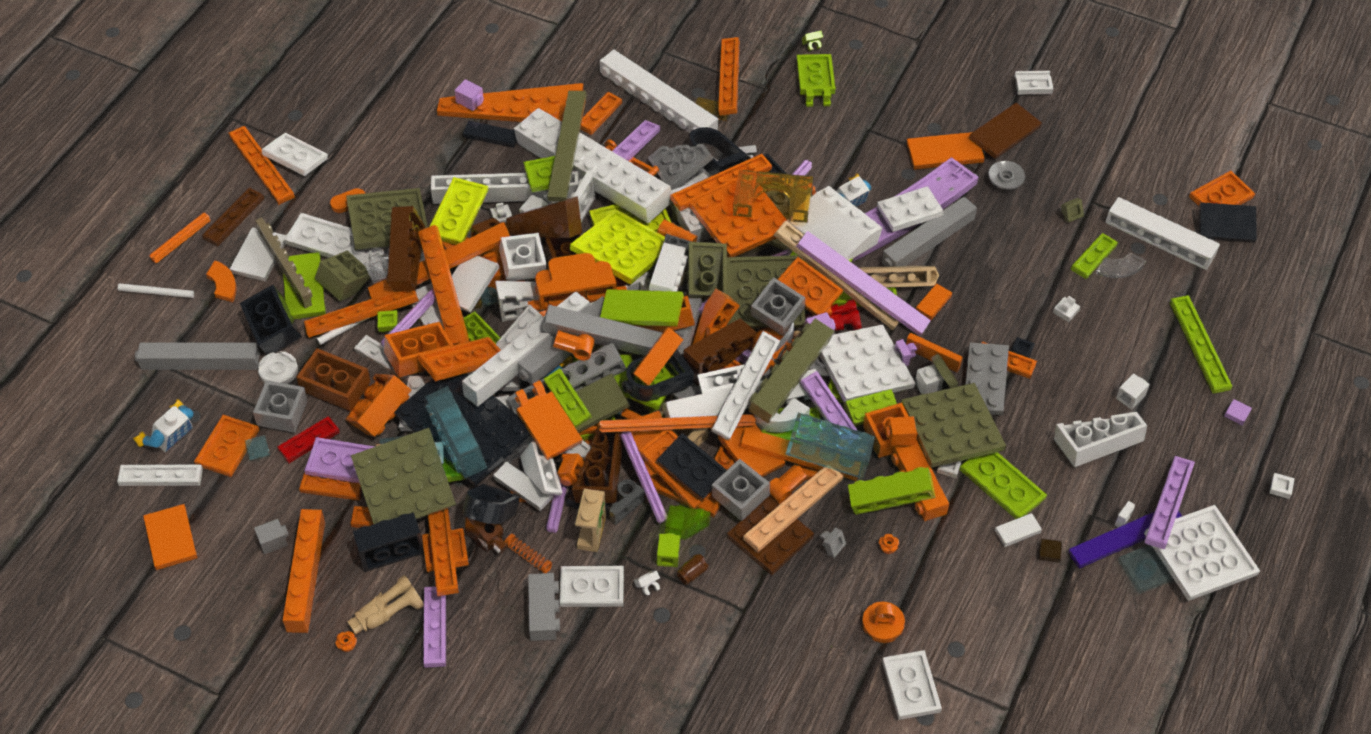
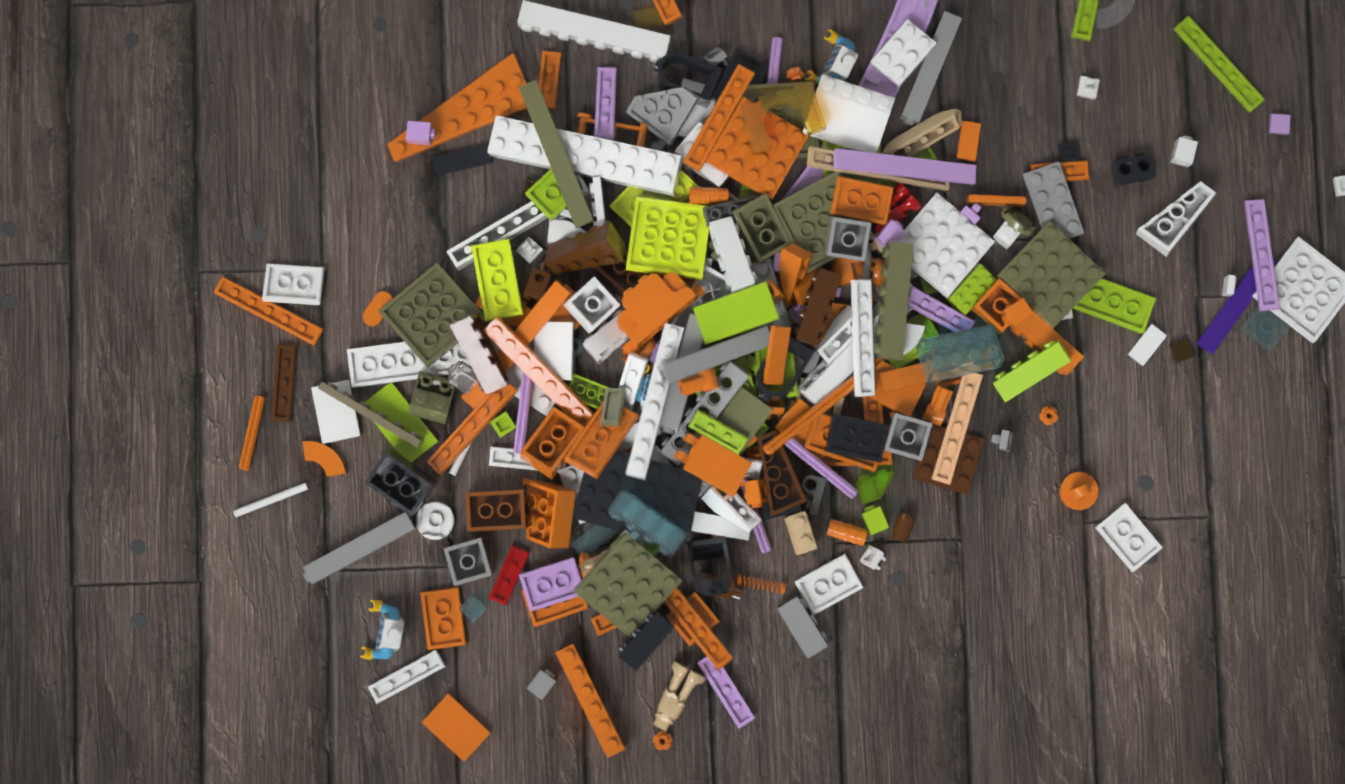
camera: 30 degrees left, 30 degrees up
(488, 340) = (613, 407): none -> olive tile
(636, 547) = (847, 532): none -> orange axle
(1072, 384) = (1134, 173): none -> black brick

